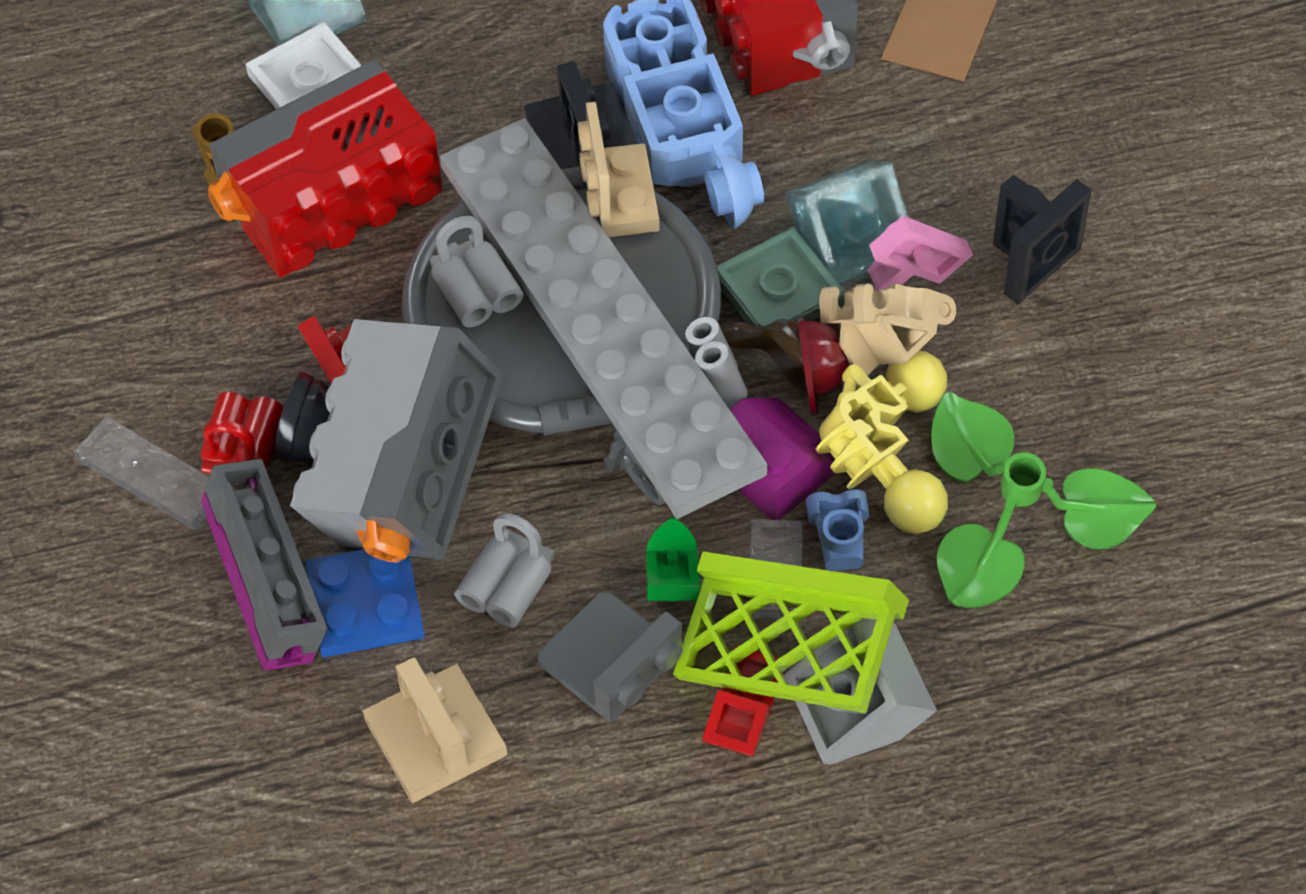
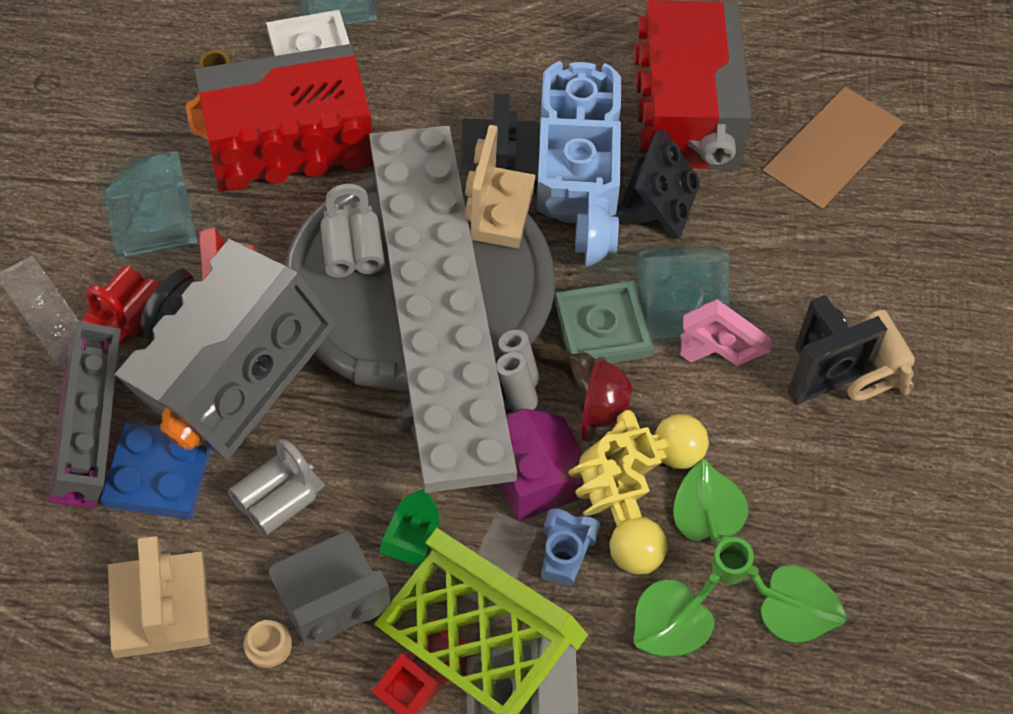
camera: 15 degrees right, 0 degrees up
(214, 318) = (150, 206): none -> clear light blue slope
(570, 731) = (267, 644): none -> tan plate
(780, 114) = (661, 187): none -> black bracket
(884, 323) = (670, 384): tan piece -> none
(1105, 227) = (892, 362): none -> tan piece

